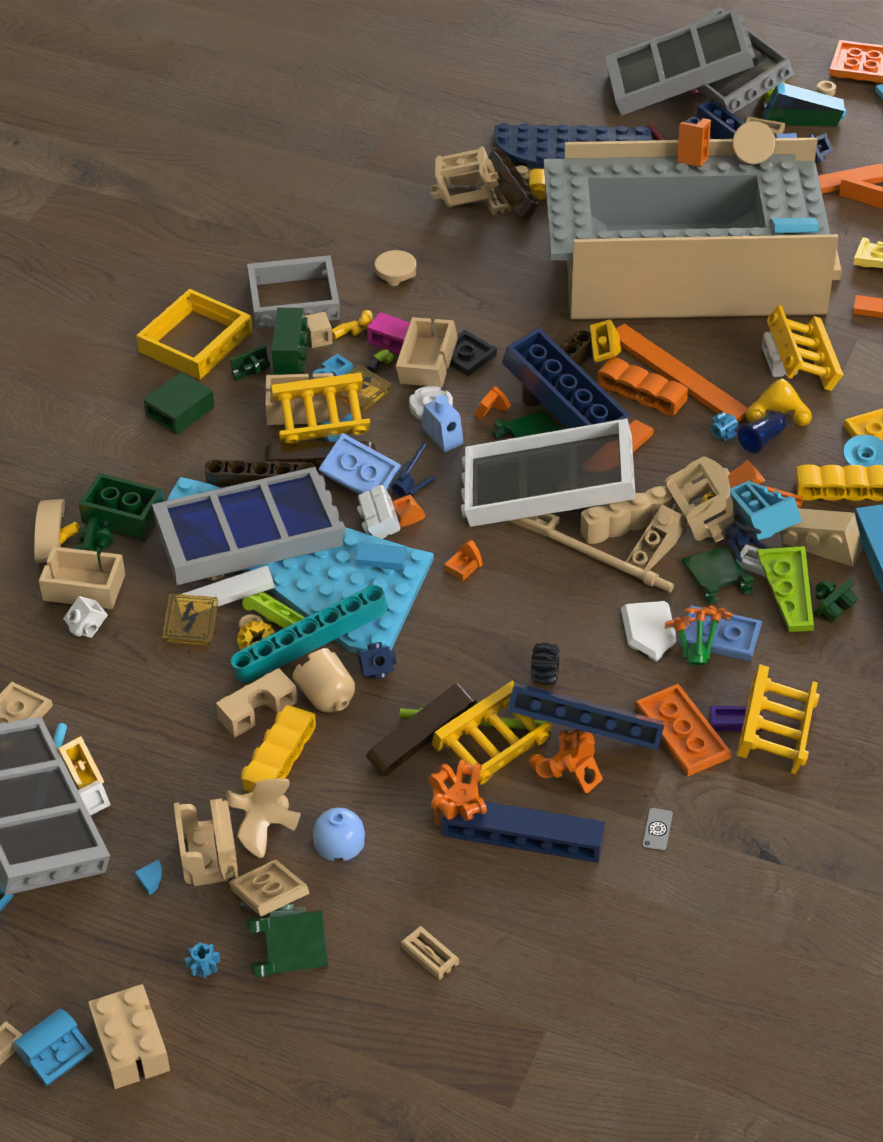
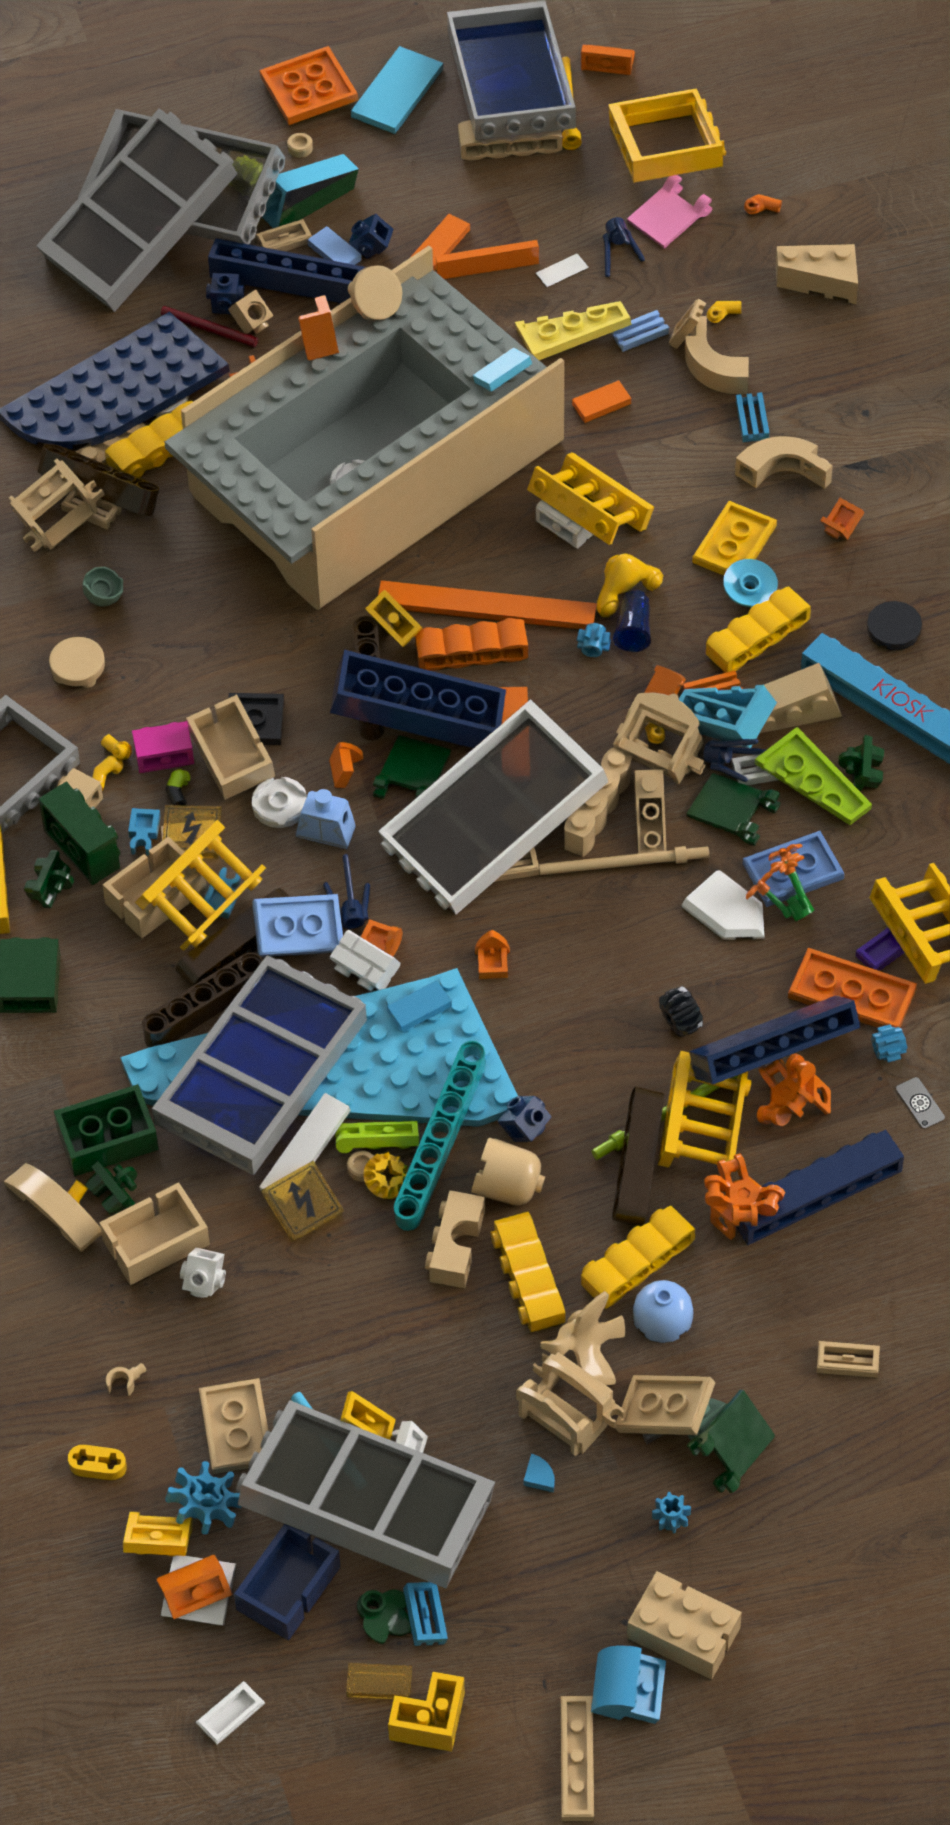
camera: 40 degrees left, 10 degrees up
(357, 790) = (640, 1255): none -> yellow brick
(452, 236) = (102, 586): none -> sand green hair
(669, 774) = (889, 1043): none -> dark azure gear

